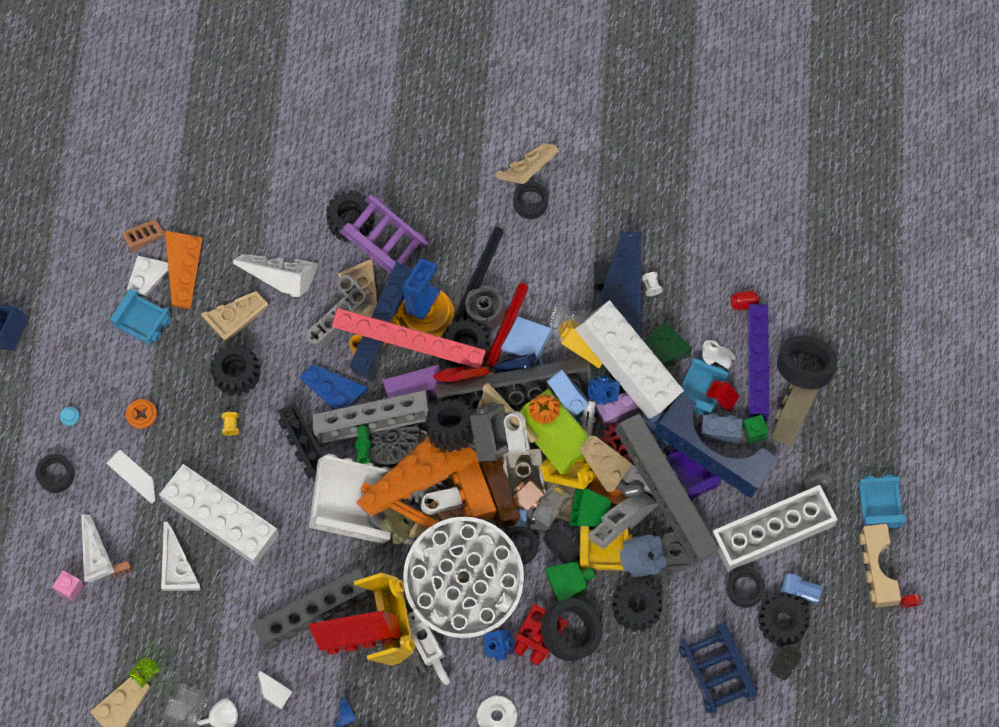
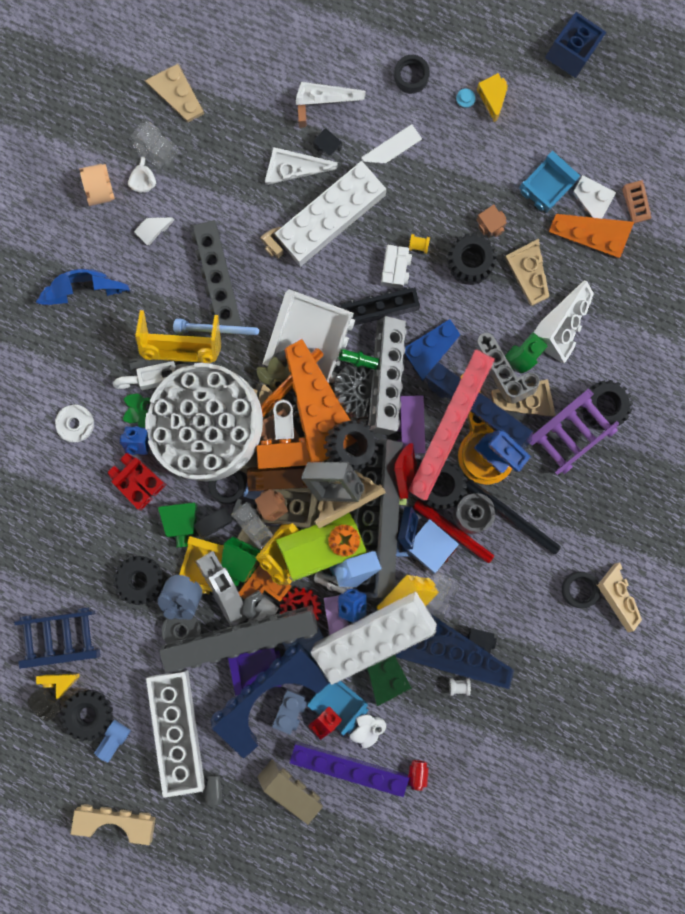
camera: 105 degrees right, 15 degrees up
(62, 389) = (492, 94): none -> yellow slope
(68, 586) = (298, 64): bright pink brick -> none
(141, 405) = (452, 156): orange gear -> none
(145, 536) = (327, 142): none -> black panel
(147, 668) = (201, 120): clear neon green brick -> none
(193, 360) = (491, 222): none -> nougat brick
(259, 439) = (395, 265): none -> white brick
(265, 564) = (271, 246): none -> tan plate
(322, 296) = (524, 357): none -> green brick
(356, 631) = (178, 311): red slope -> none
(363, 574) = (182, 326): none -> light blue piece
(468, 655) = (137, 409): none -> green plate
(516, 438) = (323, 507): white piece -> none
(588, 616) = (120, 530): black tyre -> none
(605, 462) = (275, 585): tan wing -> none
(745, 603) = (114, 693): black tyre -> none
(755, 429) = (280, 745): green brick -> none
(757, 652) = (62, 681): none -> yellow slope
(812, 346) = (348, 833): black tyre -> none
(881, 501) = (175, 846): dark azure panel -> none
(910, 601) = (71, 844): red tile -> none

